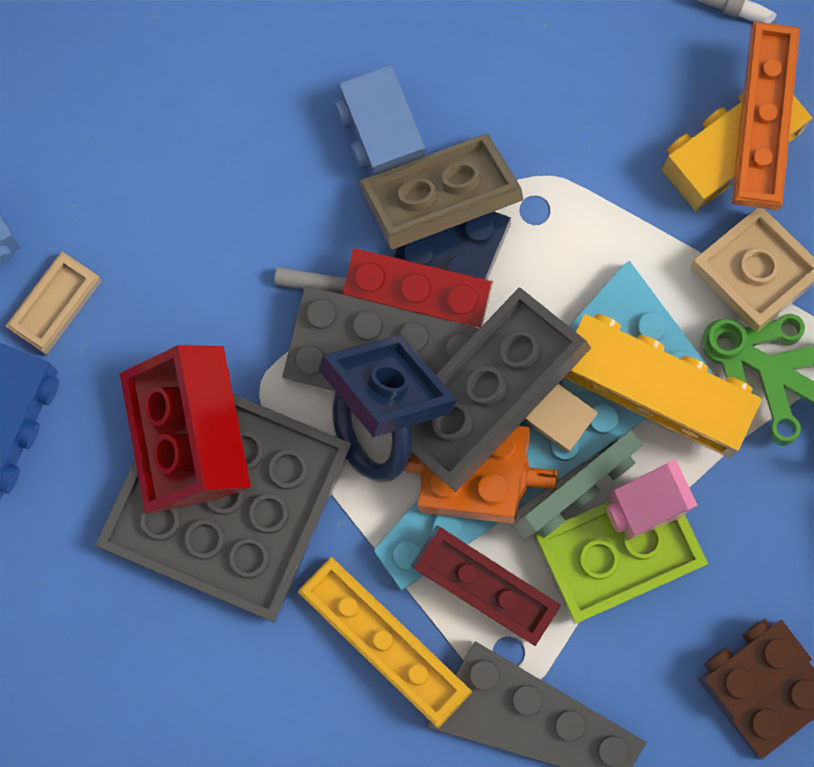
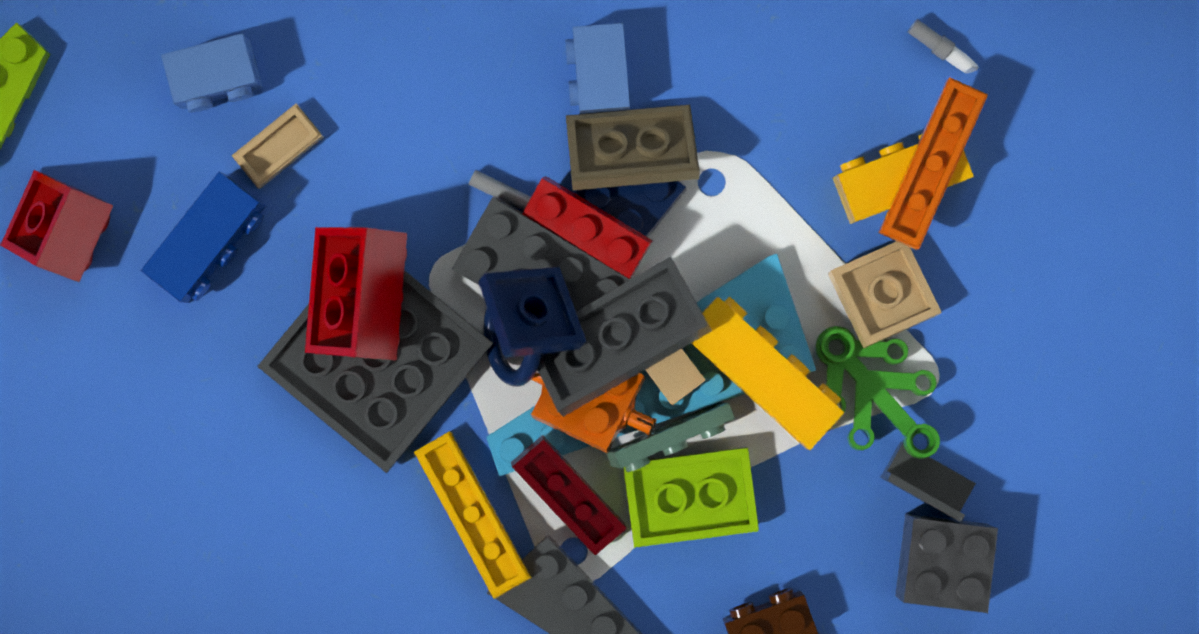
camera: 15 degrees right, 10 degrees up
(650, 501) = (722, 471): bright pink slope -> none

